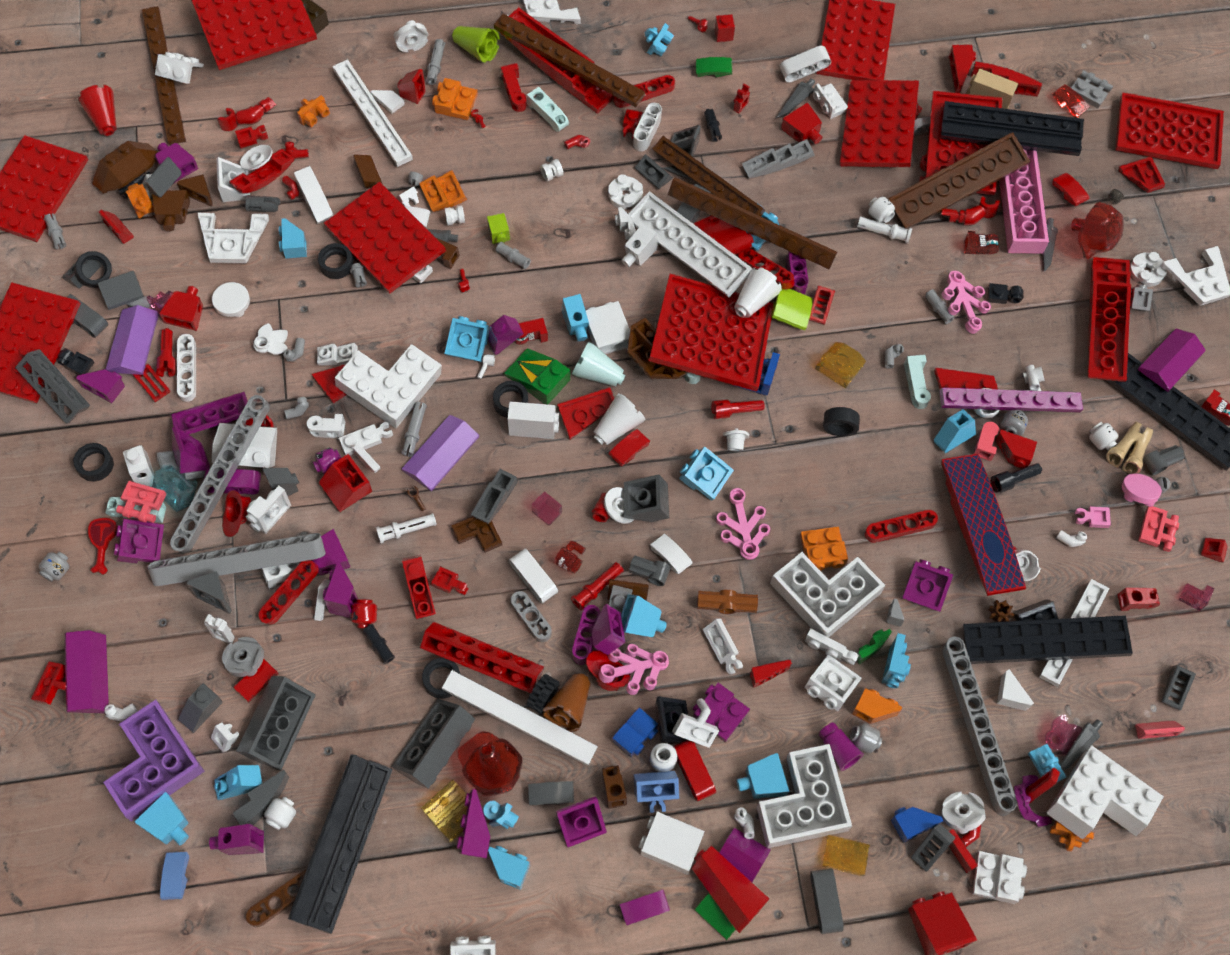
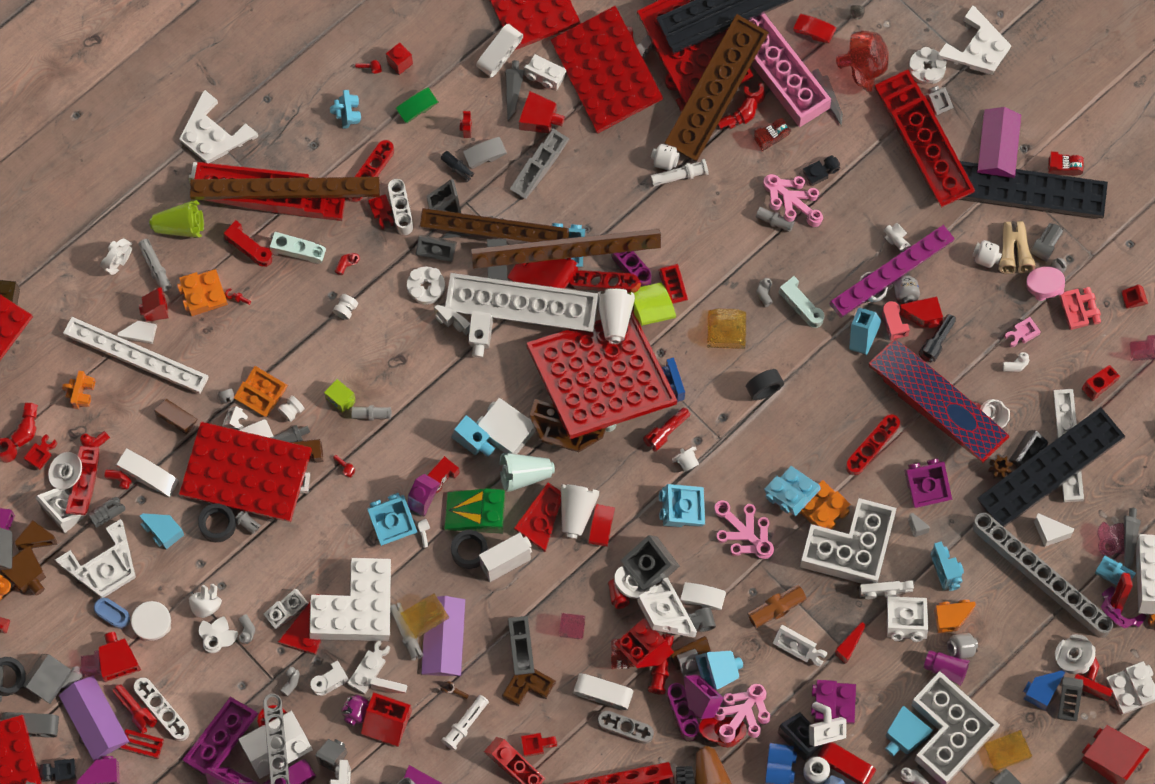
camera: 30 degrees left, 5 degrees up
(208, 276) = (112, 613): none -> medium blue tile
(278, 311) = (206, 602): none -> white piece
(435, 424) = (424, 615): none -> clear yellow plate
(591, 559) = (644, 646): none -> red slope
(629, 542) = (665, 610): none -> white wing
(740, 126) = (485, 151): none -> light grey slope
(805, 518) = (791, 491): none -> medium azure plate
(876, 643) = (919, 561): green slope -> none
(959, 379) = (841, 278): red wing -> none

